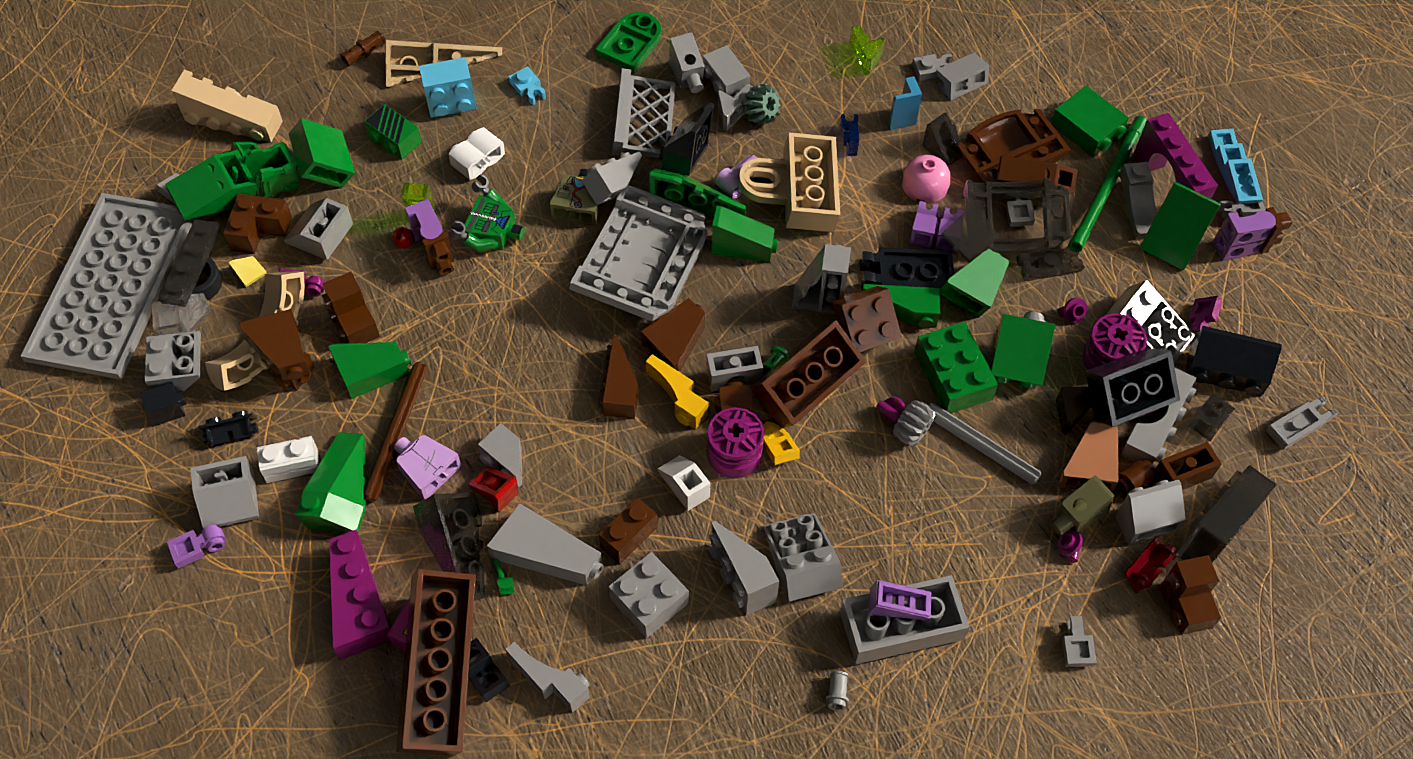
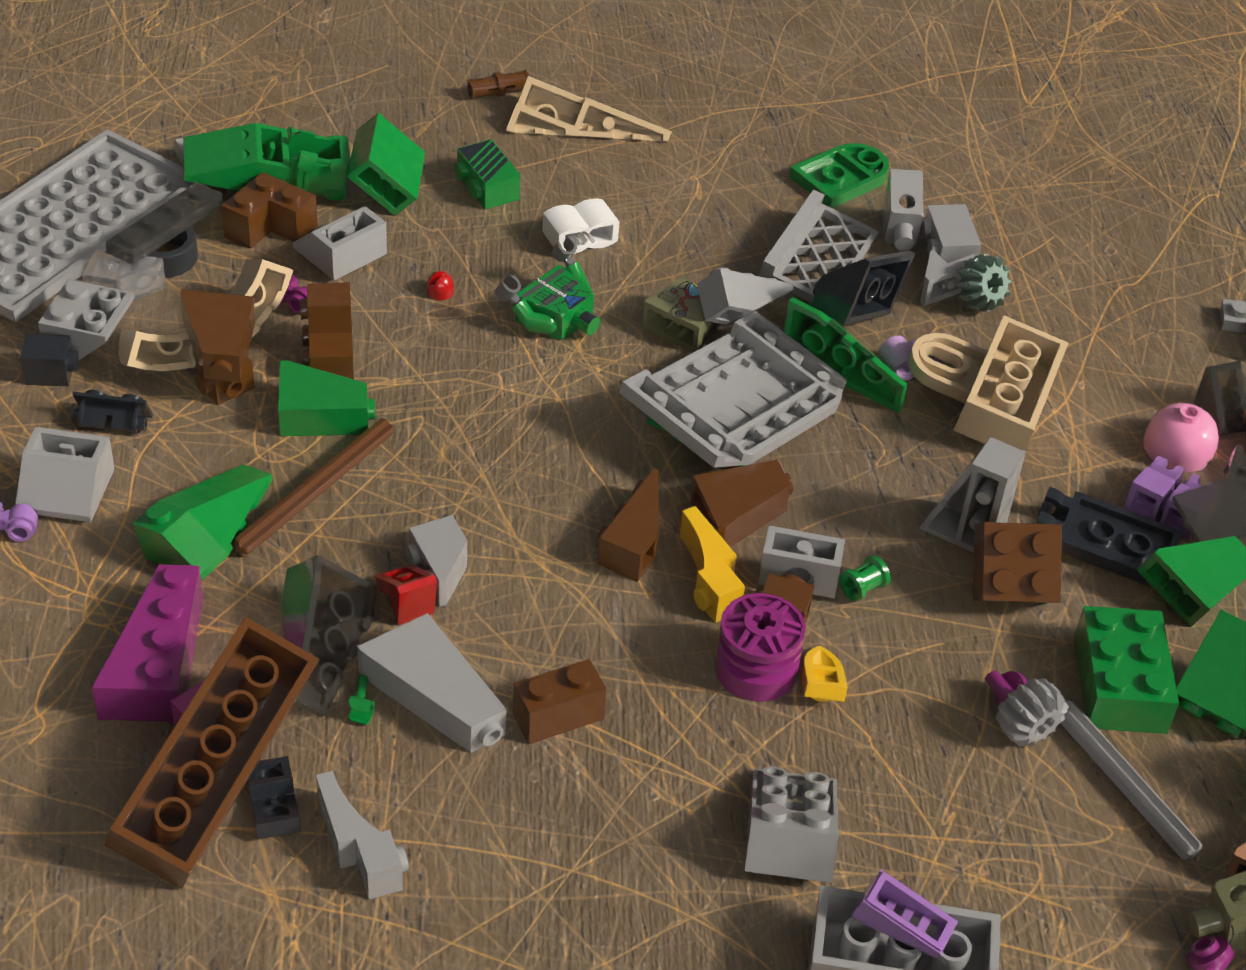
camera: 20 degrees right, 15 degrees down
(225, 109) = (297, 89): tan wedge -> none
(247, 270) = (229, 258): light yellow slope -> none
(288, 459) = (160, 465): white brick -> none
(415, 193) = (479, 244): clear neon green slope -> none
(426, 464) = (334, 530): lavender torso -> none
(436, 243) = (473, 288): hips -> none
(448, 87) = (579, 145): medium azure brick -> none
(527, 83) = (684, 177): medium azure plate -> none
(649, 595) = (548, 788): light grey brick -> none
(686, 481) = (669, 674): white slope -> none
(742, 237) = (884, 417): green slope -> none
(745, 569) = (695, 803): light grey slope -> none
(808, 374) = (902, 599): reddish brown brick -> none
(851, 137) = (1093, 355): clear blue plate -> none
(866, 51) = (1159, 271): clear neon green slope -> none
(906, 106) = (1184, 342): dark azure panel -> none
(914, 304) = (1096, 574): green slope -> none

